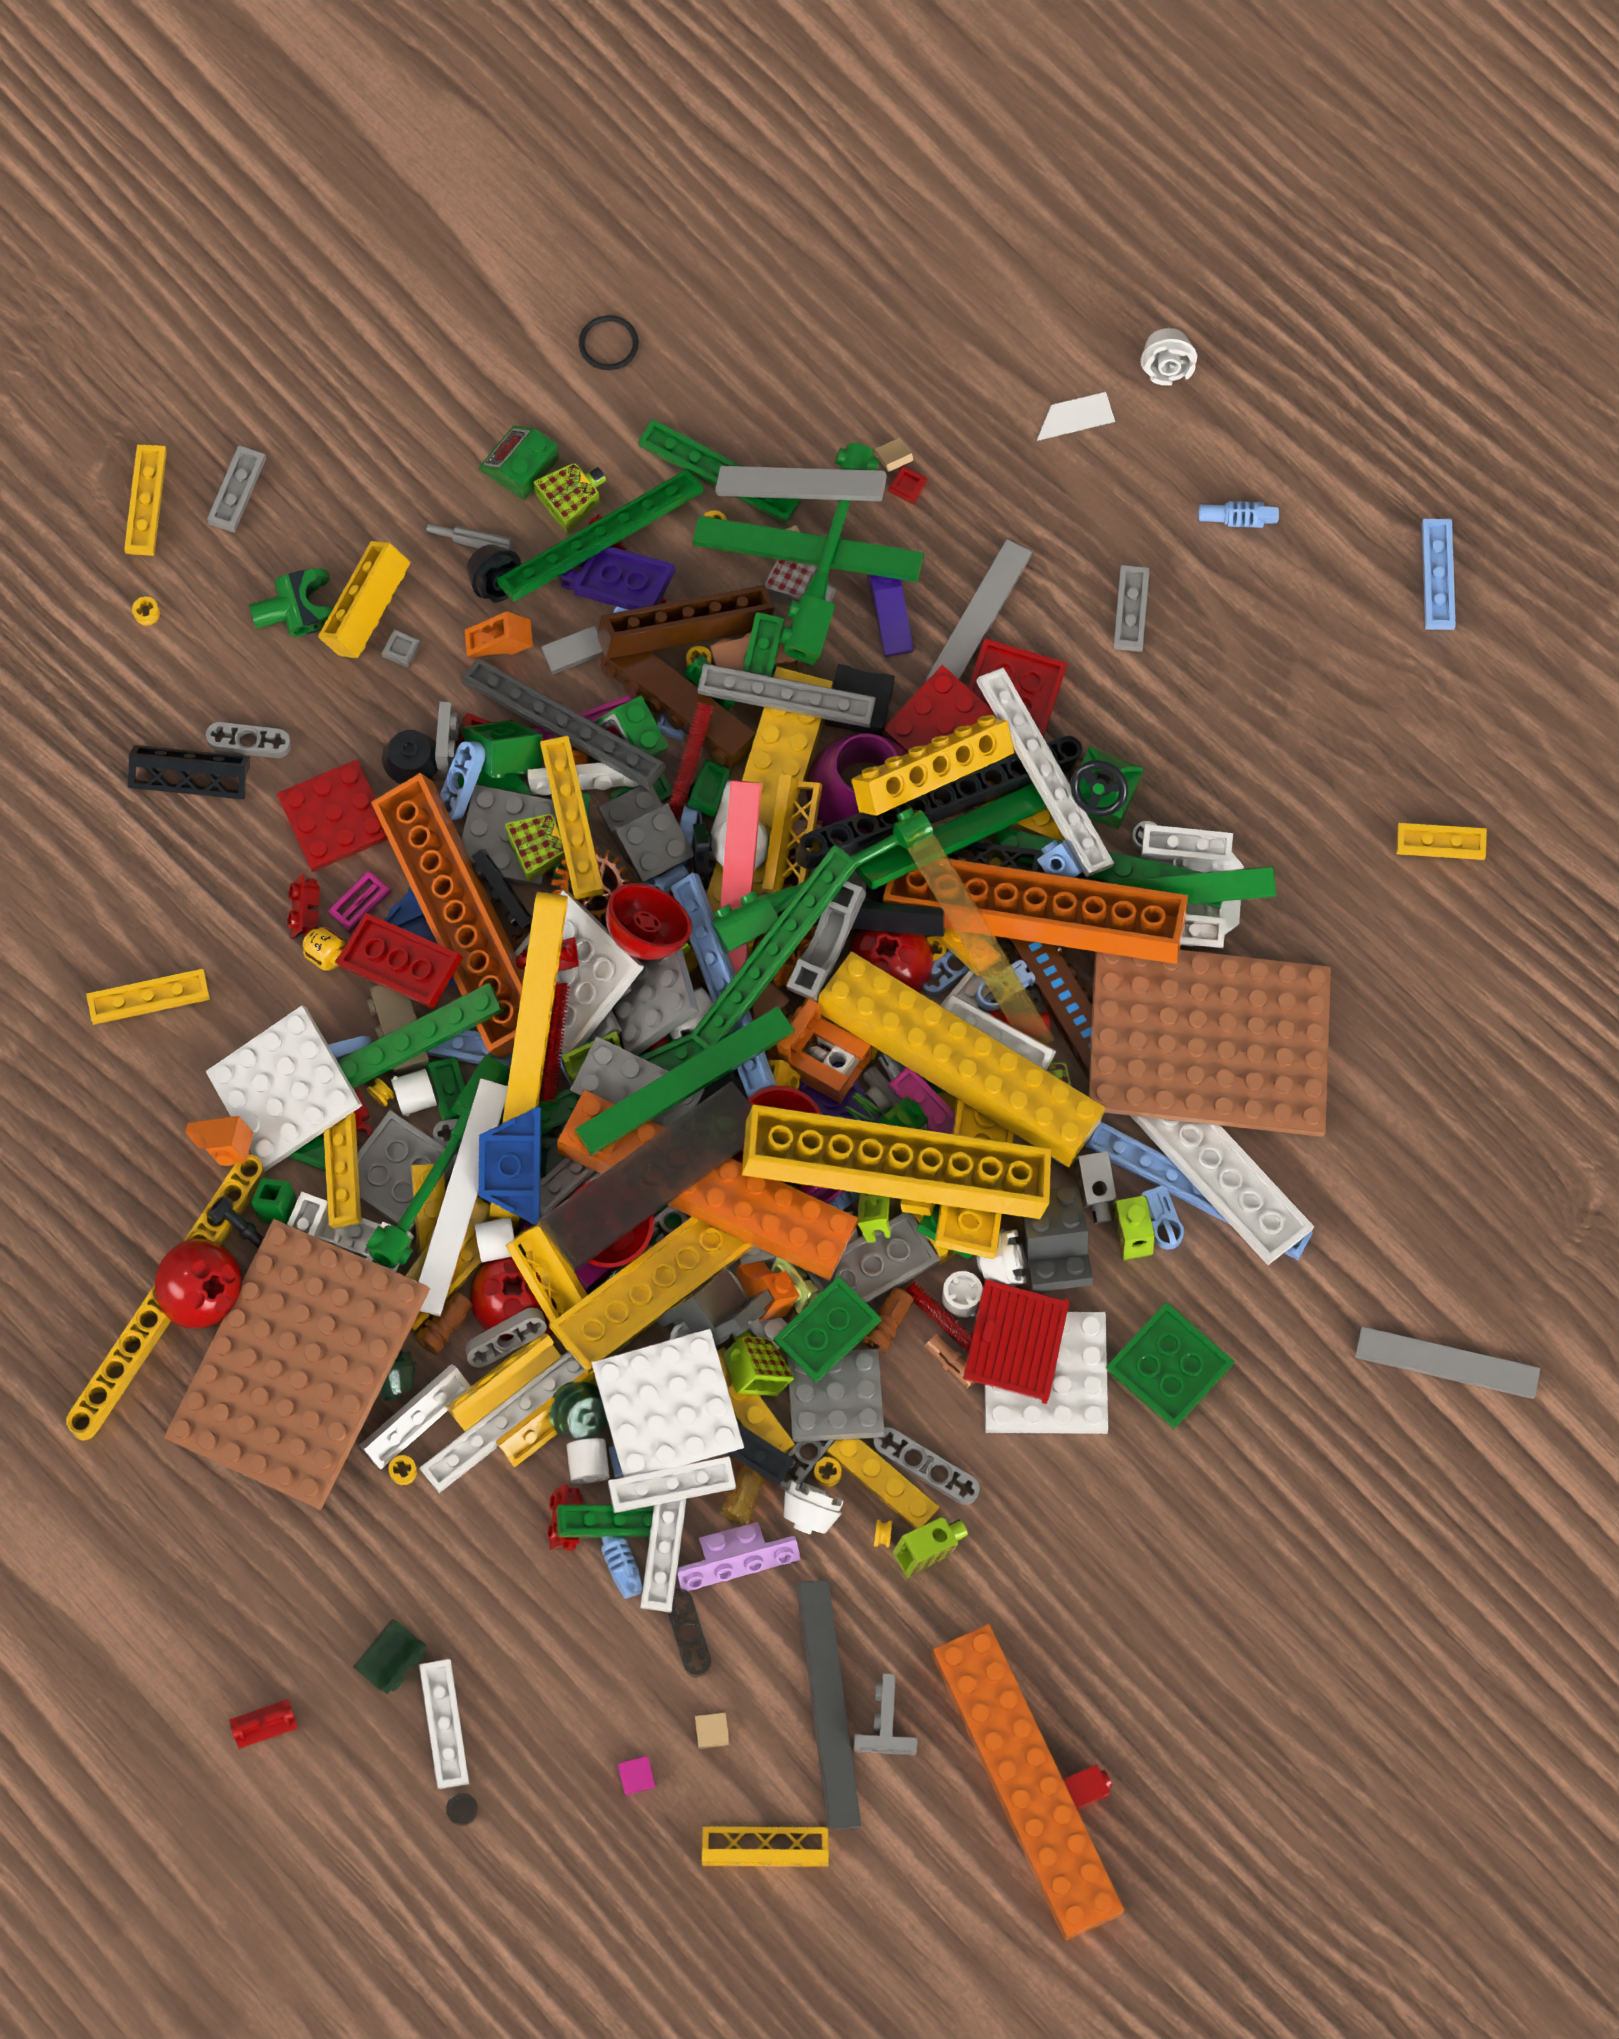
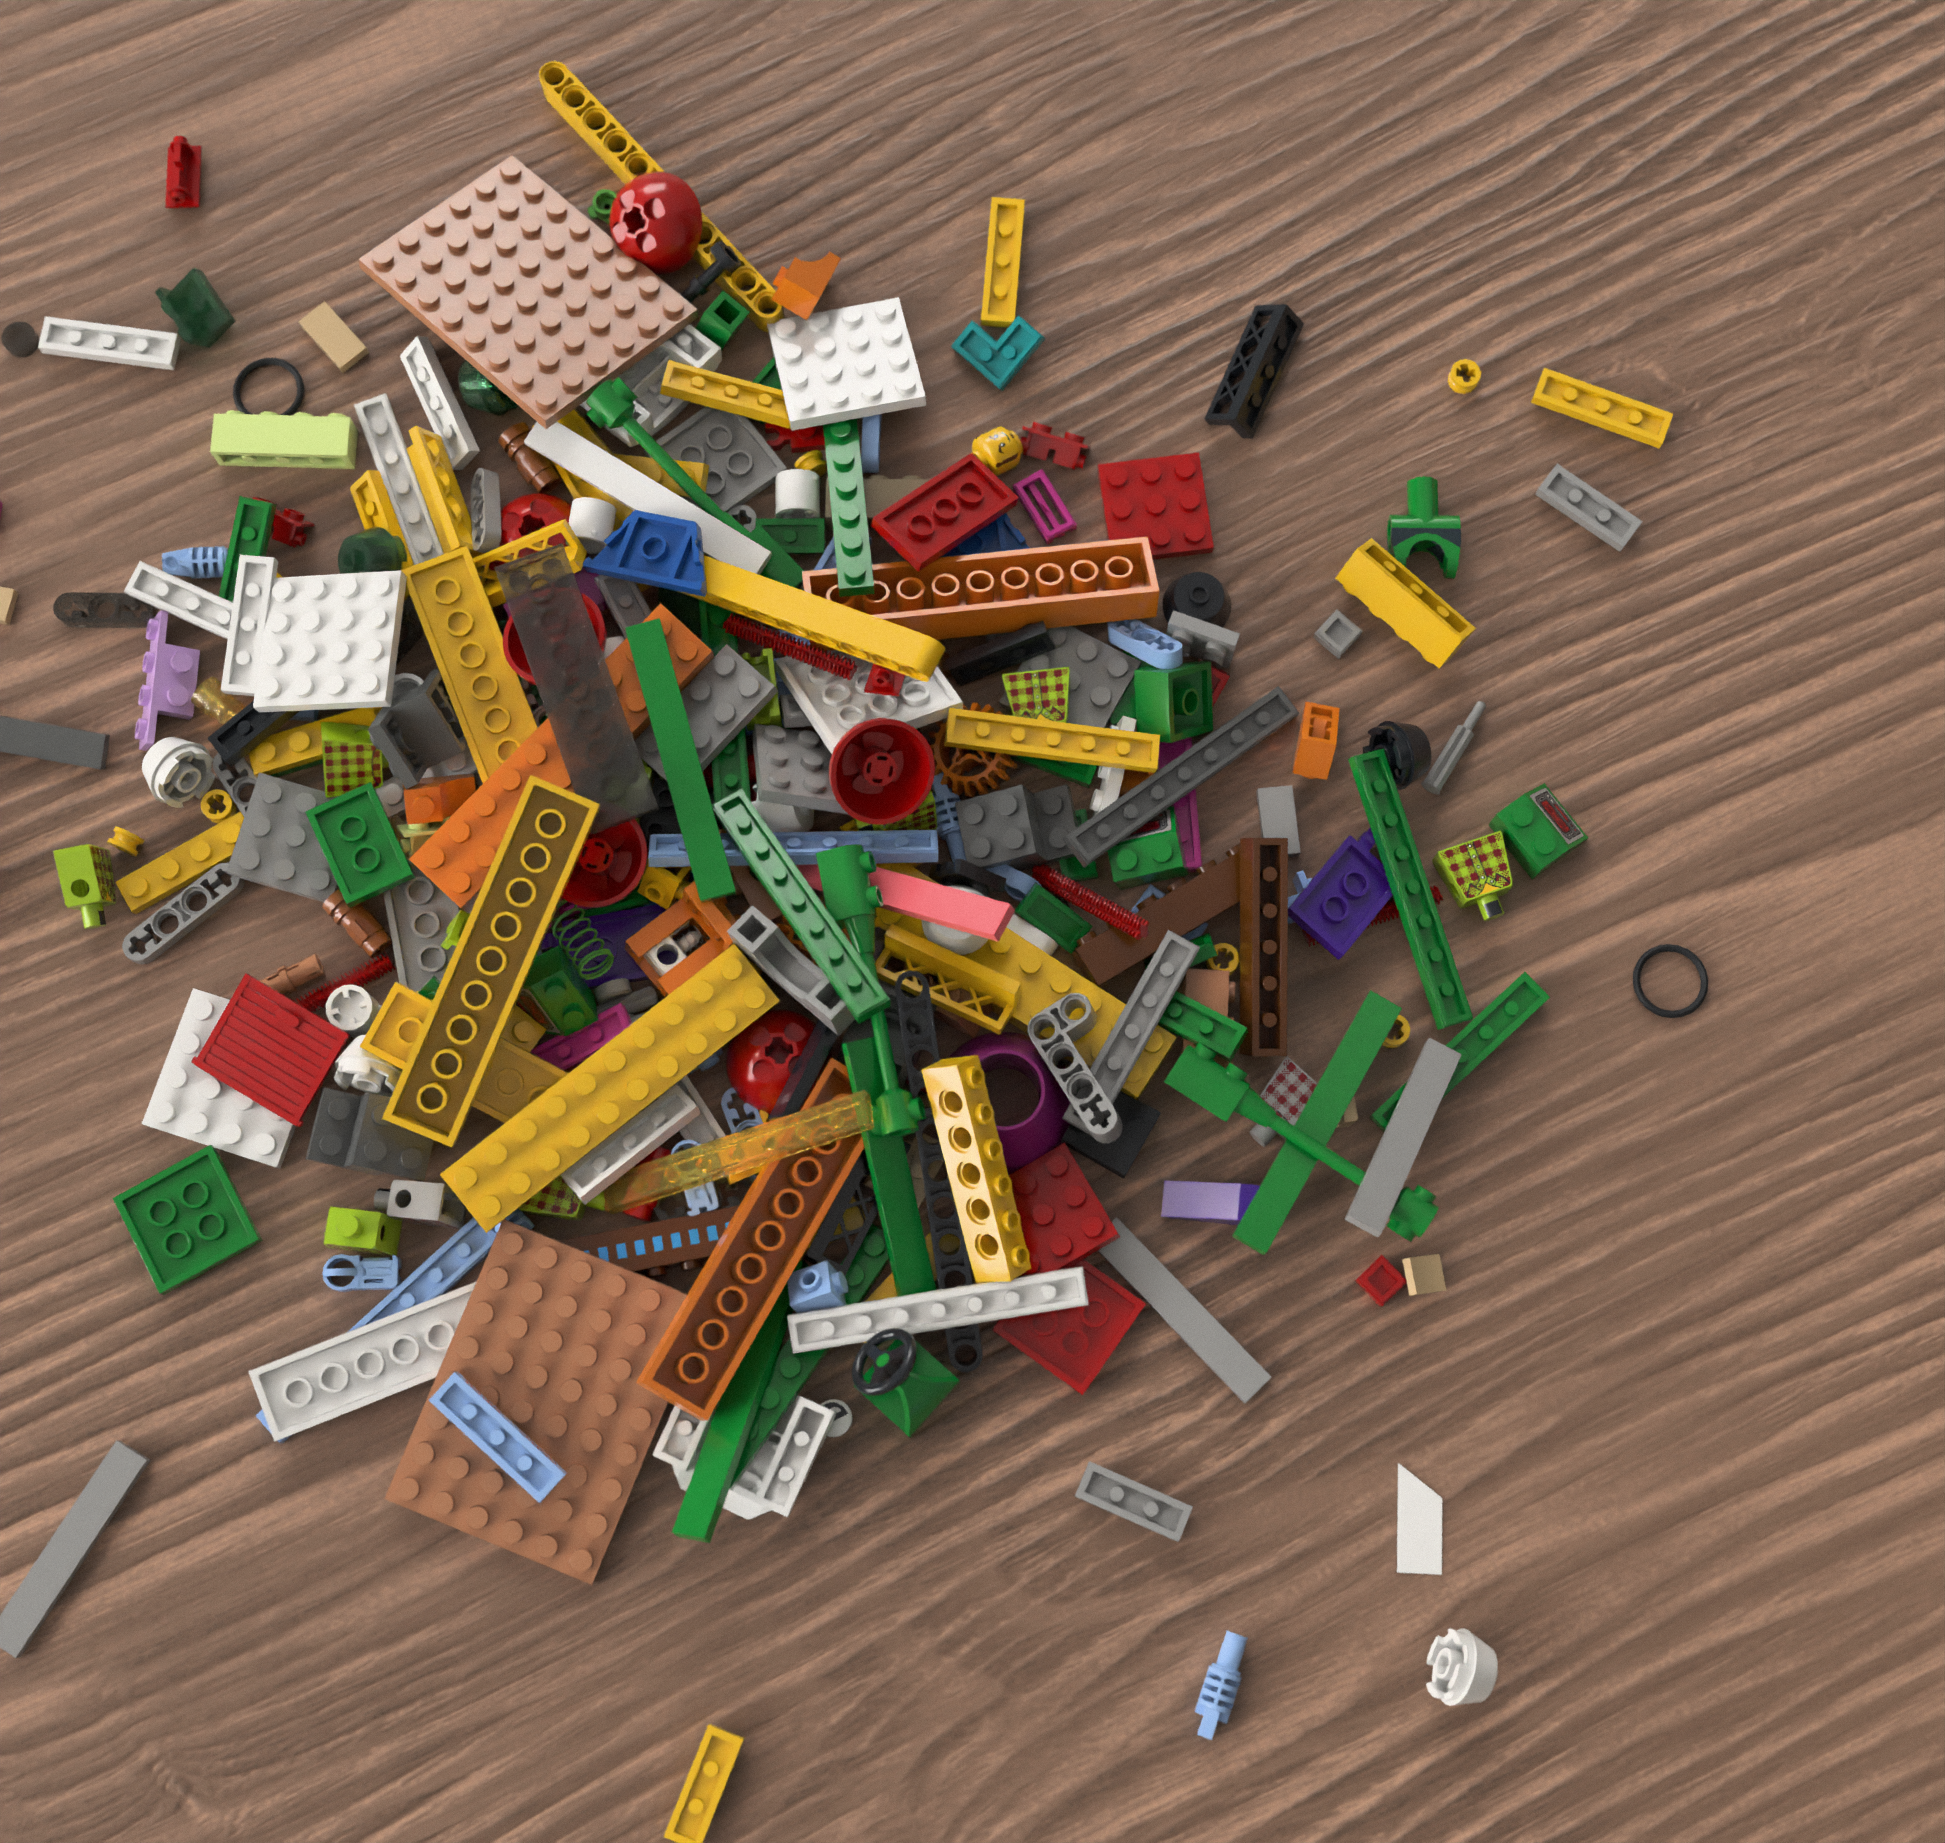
camera: 110 degrees right, 5 degrees up
(181, 1336) = (600, 200): none -> bright green plate
(227, 746) = (1272, 427): light grey beam -> none
(238, 971) = (1002, 358): none -> teal tile
(379, 1533) = (333, 337): none -> tan tile
(408, 1462) = (398, 383): yellow bush -> none
(425, 1552) = (269, 361): none -> black tyre
(490, 1535) = (284, 440): none -> yellowish green brick
(588, 1461) = (316, 555): white piece -> none
(832, 715) = (1078, 1074): none -> light grey beam
(1251, 1055) = (497, 1436): none -> light blue plate

